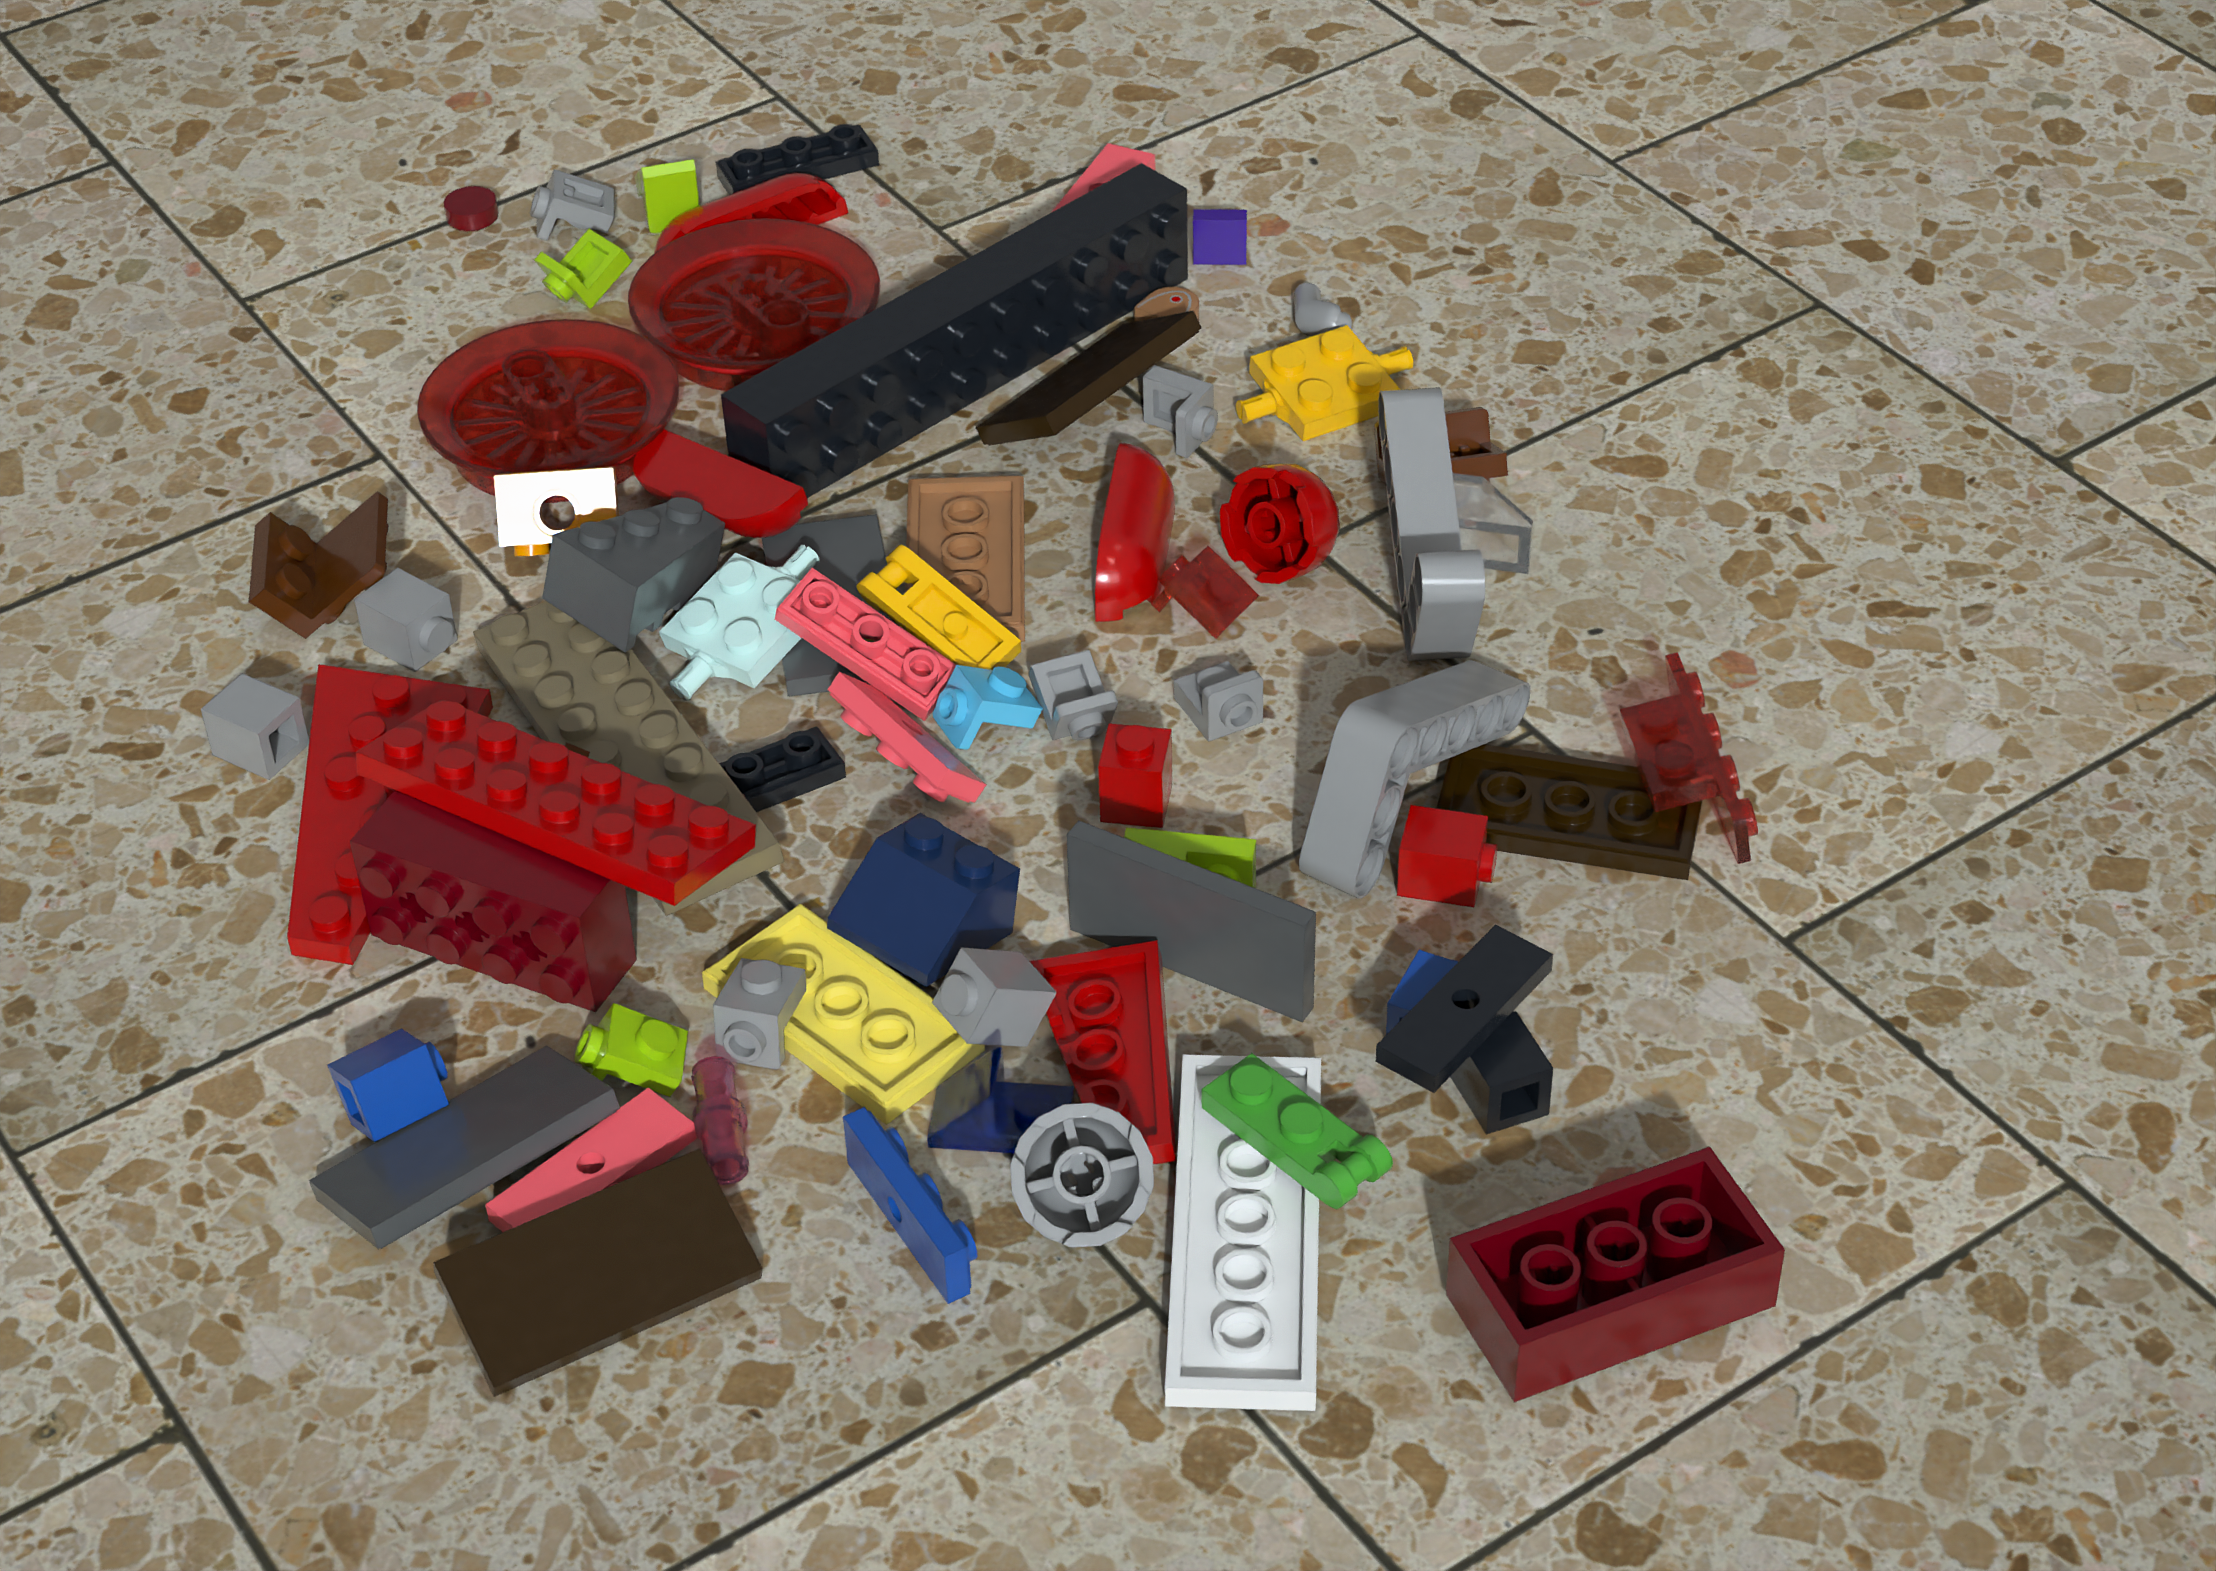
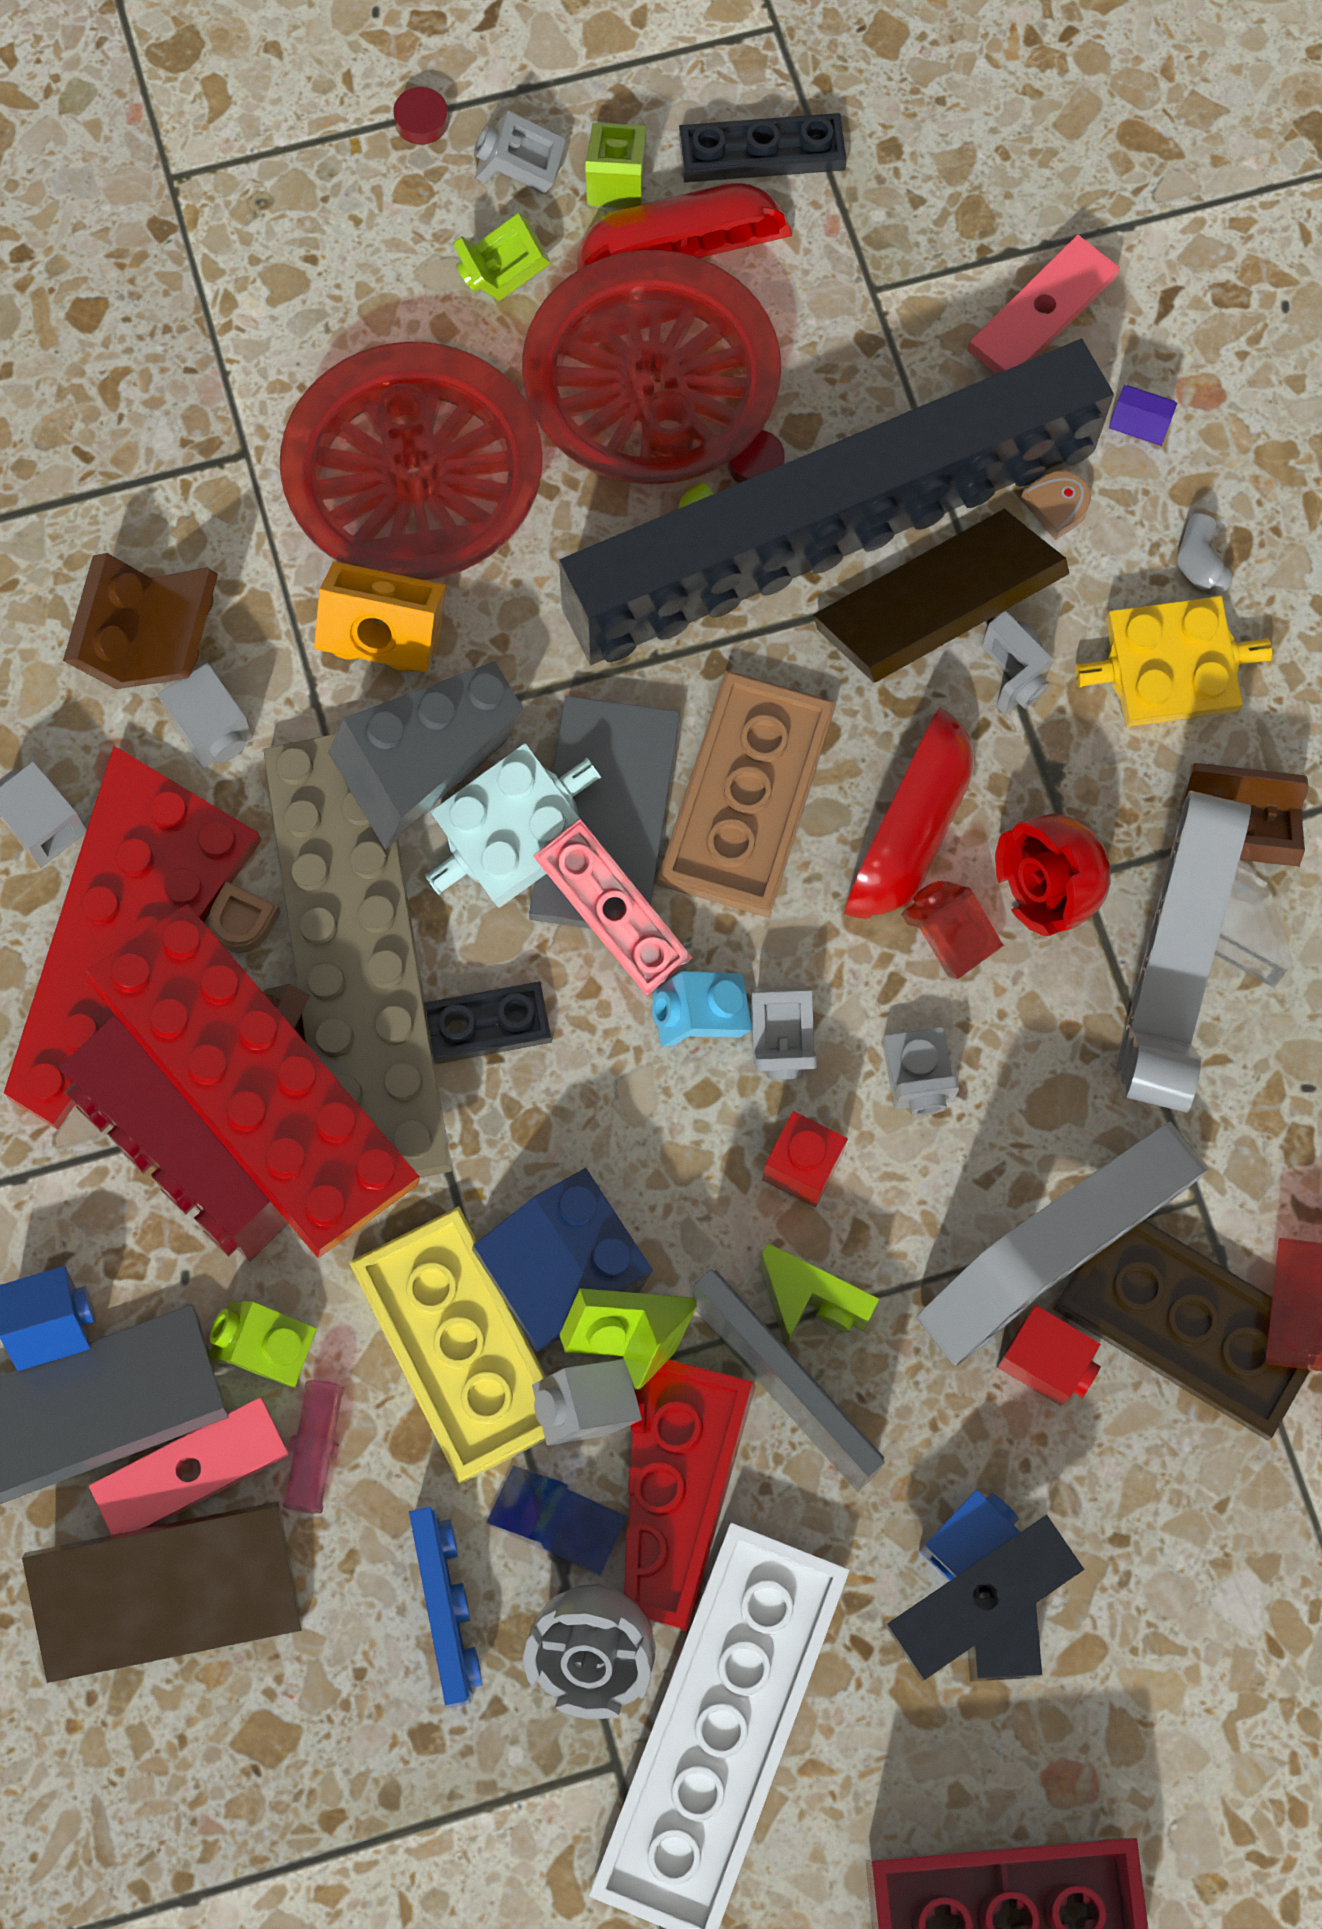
camera: 15 degrees right, 30 degrees up
(729, 489) = (530, 642): red brick -> none
(755, 1011) = (380, 1334): light grey bracket -> none
(904, 741) = (613, 1032): coral tile -> none
(938, 612) = (690, 891): yellow plate -> none
(1010, 916) = (628, 1325): none -> lime slope
(1295, 1131) = (792, 1659): bright green plate -> none

